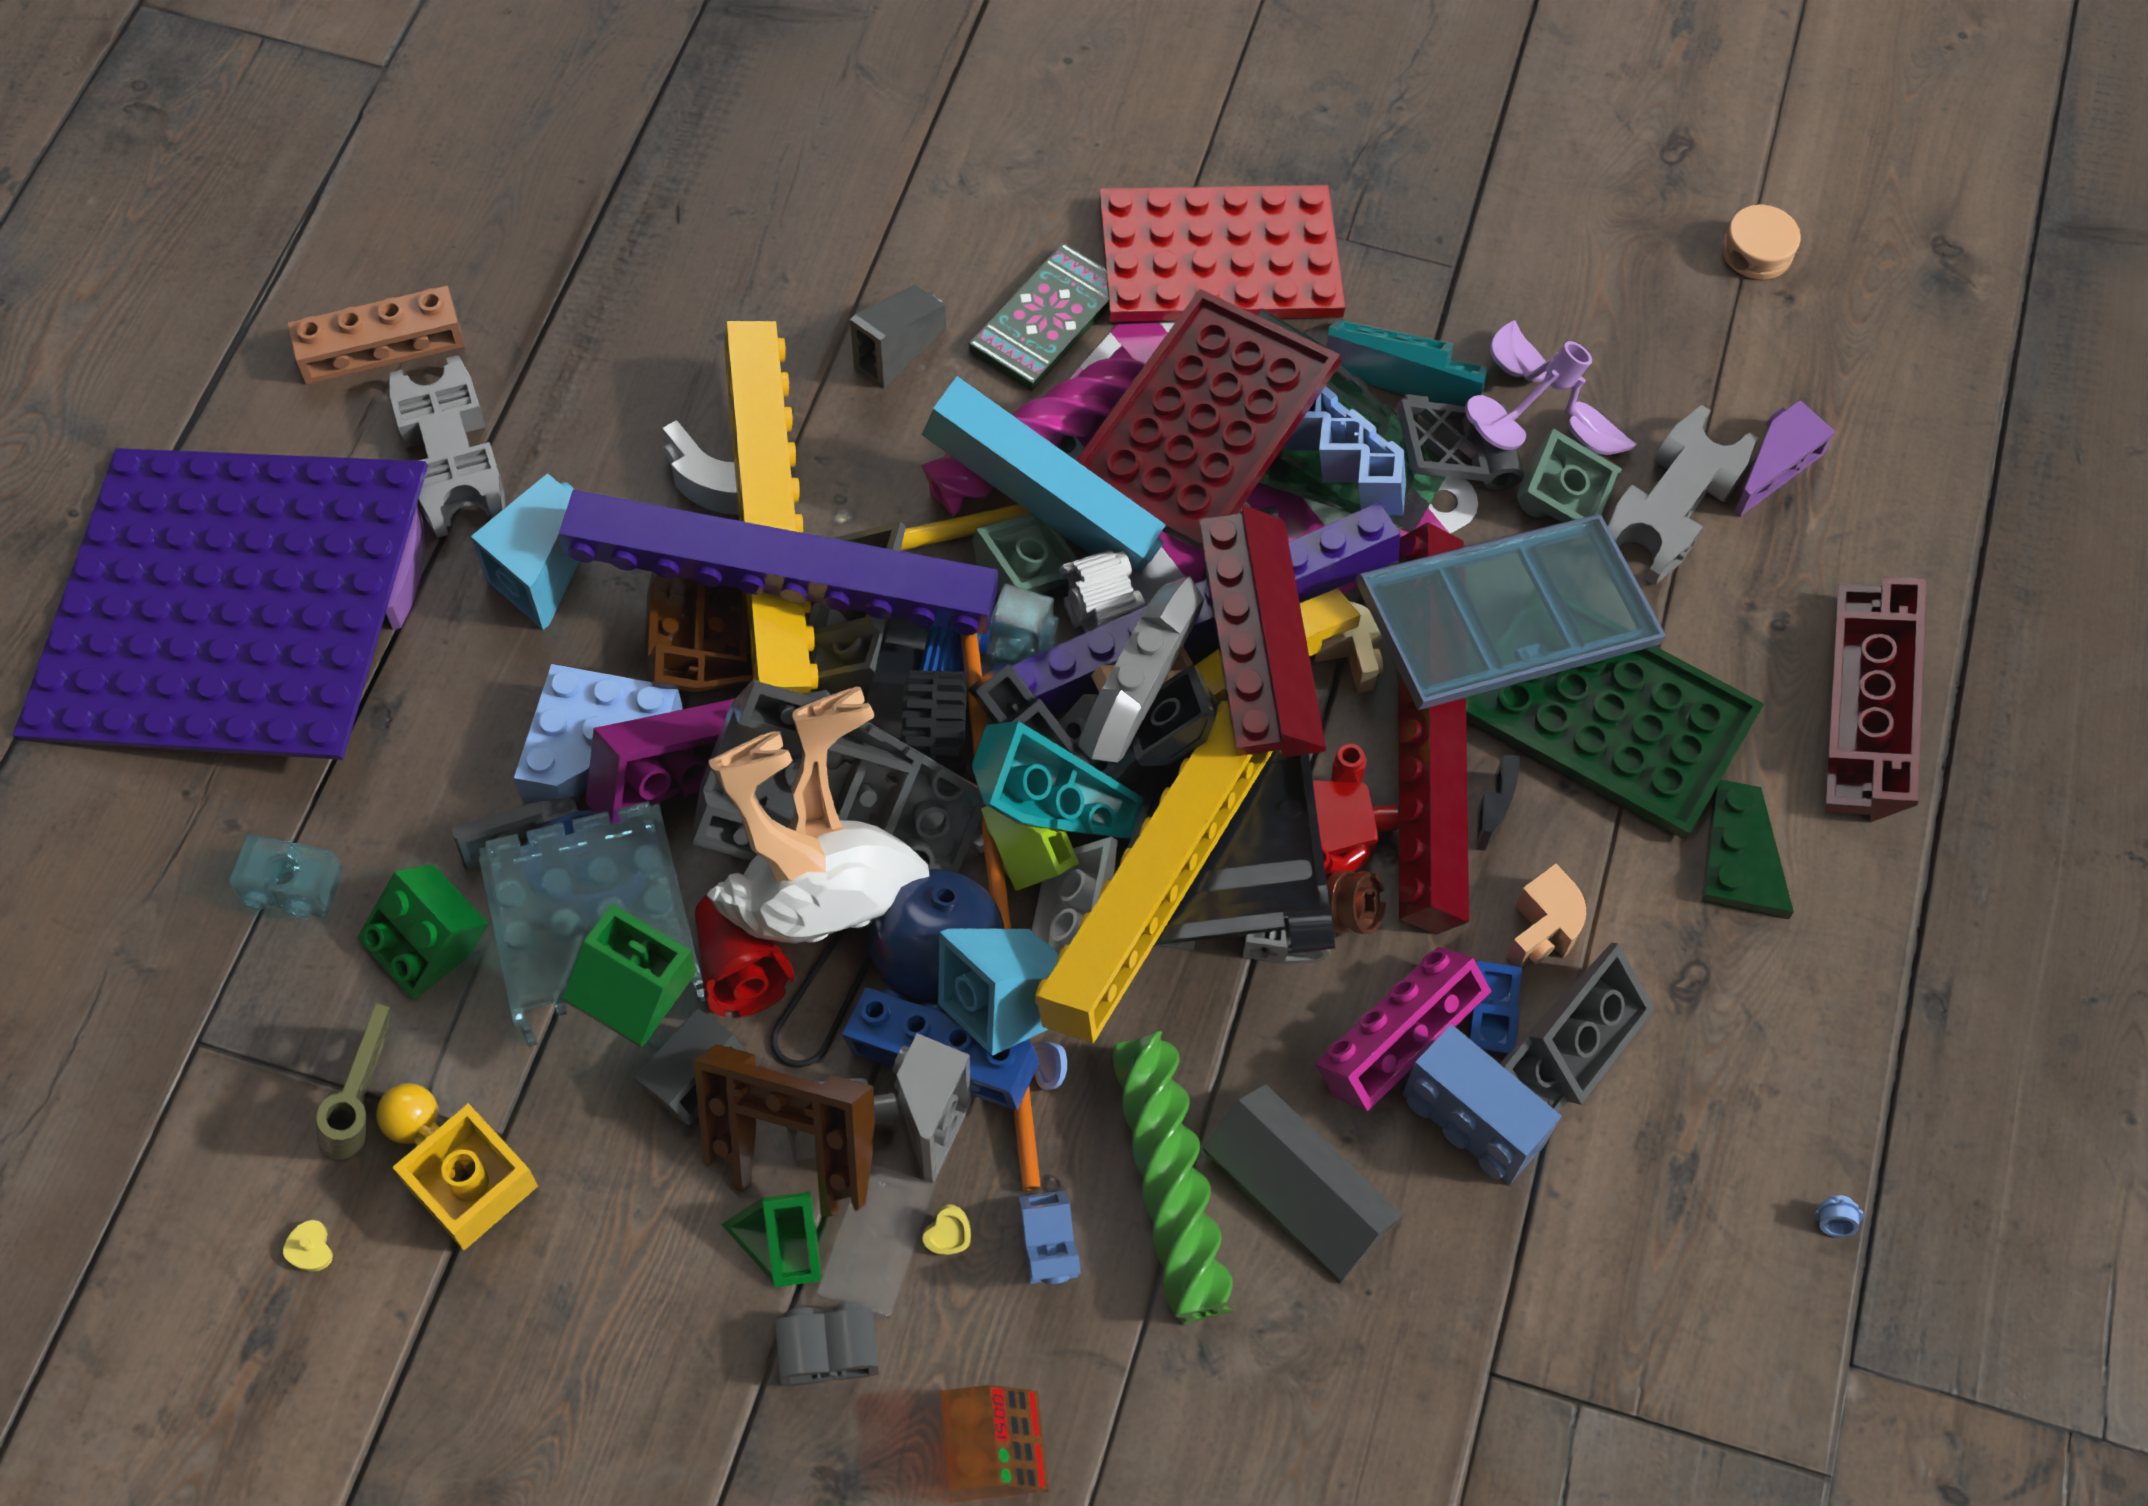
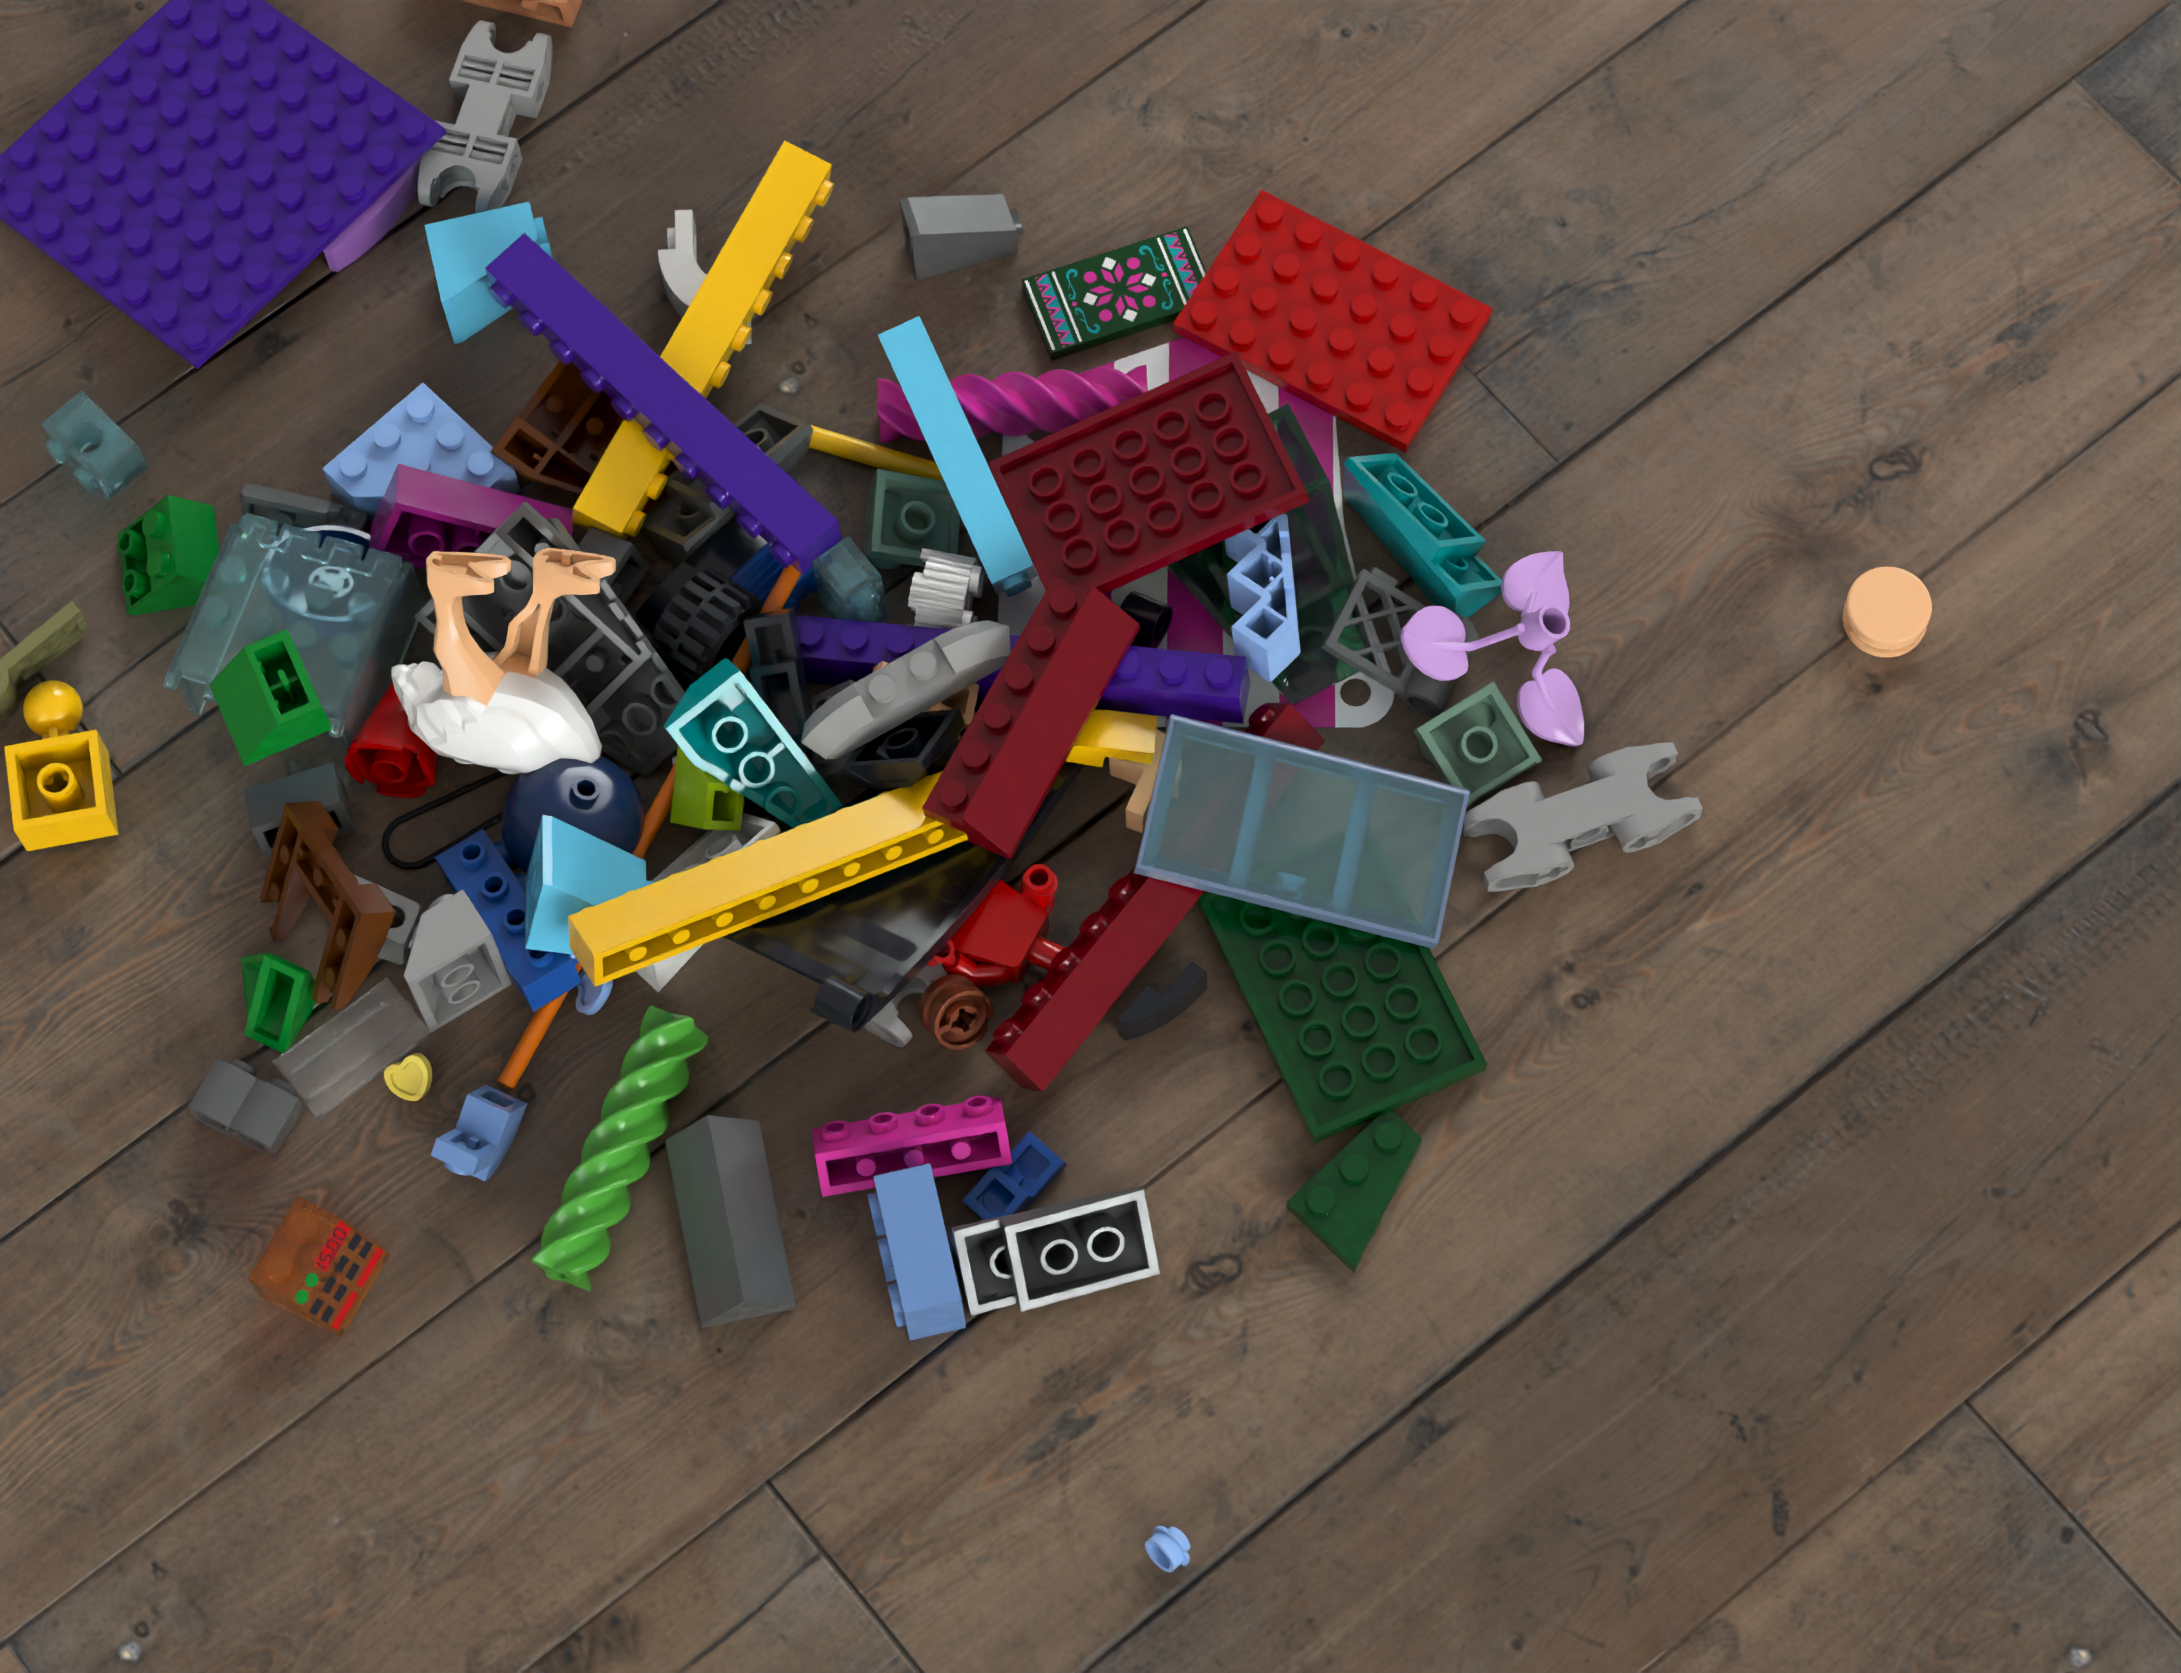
camera: 40 degrees right, 5 degrees up
(1556, 915) = (1130, 1142): light nougat brick -> none
(1790, 445) = (1724, 835): medium lavender slope -> none
(1877, 698) = (1595, 1117): dark red slope -> none

